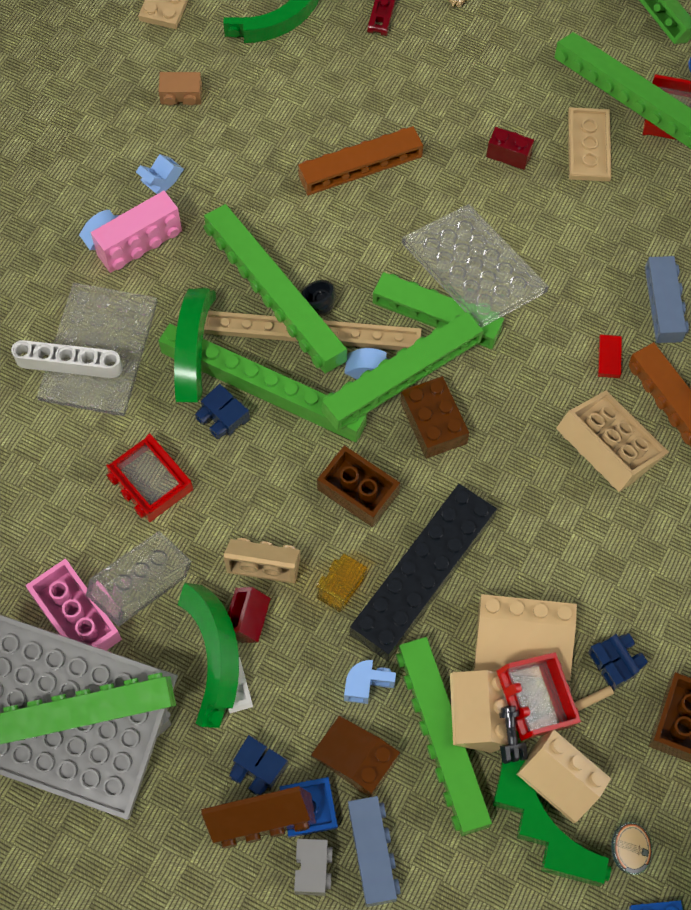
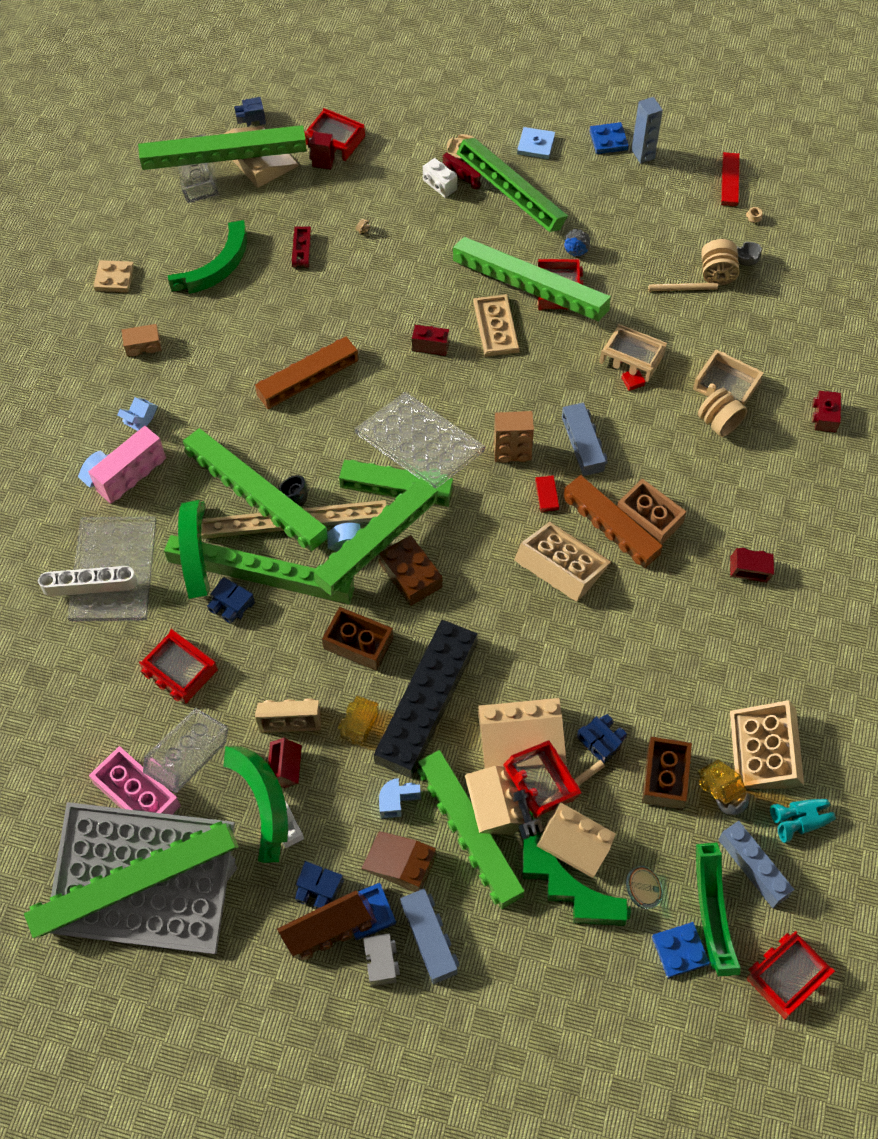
camera: 10 degrees left, 5 degrees down
(584, 282) = (513, 436): none -> medium nougat brick

